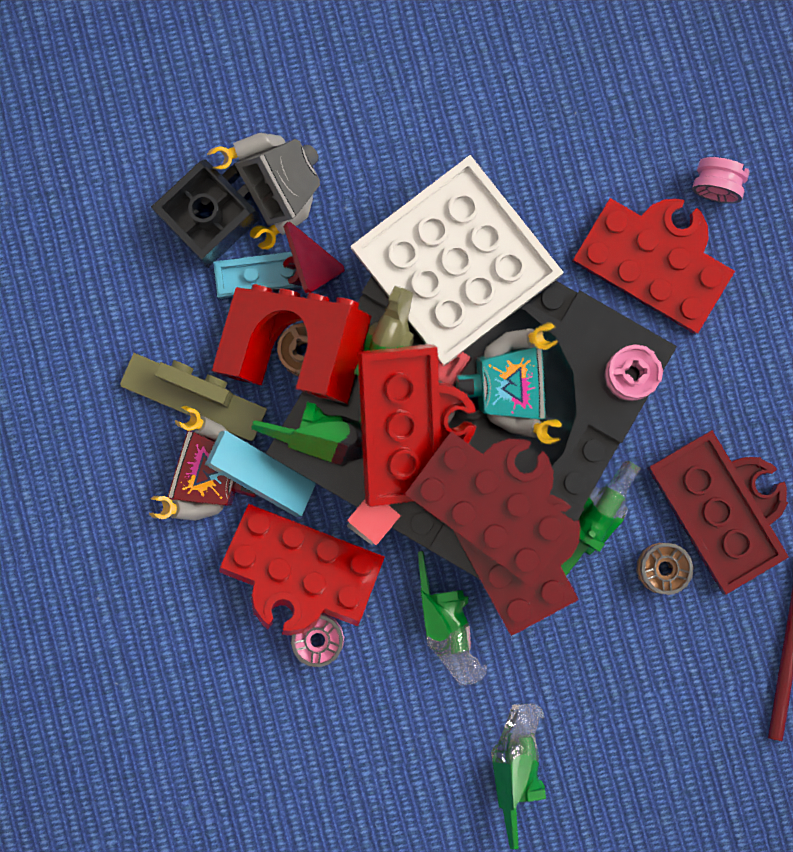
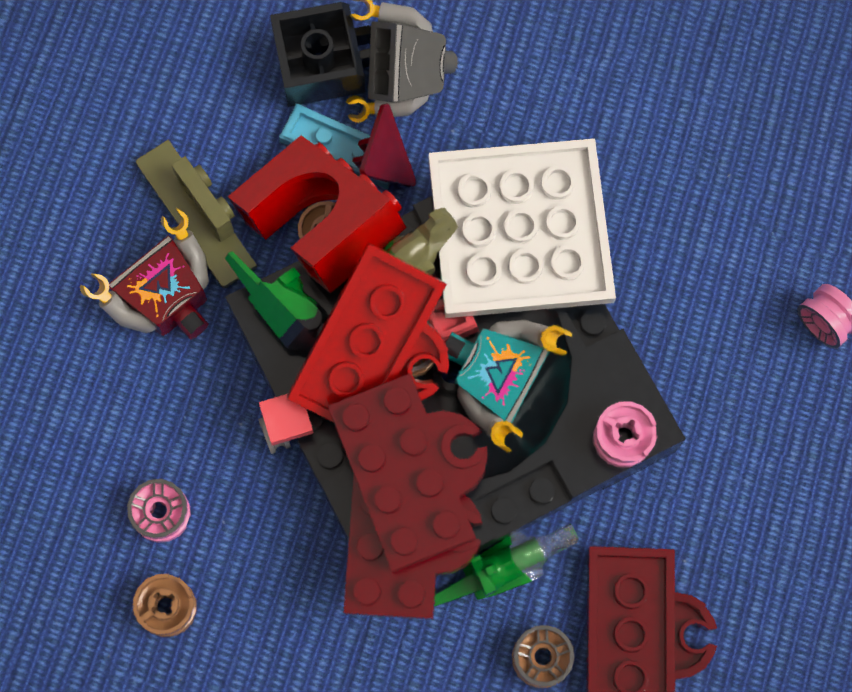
camera: 30 degrees right, 10 degrees down
(260, 473) = (209, 317): medium azure tile -> none
(299, 570) = (186, 433): red plate -> none
(359, 719) = (146, 605): none -> medium nougat wheel
(449, 630) = (290, 579): animal -> none
(656, 260) = (721, 356): red plate -> none

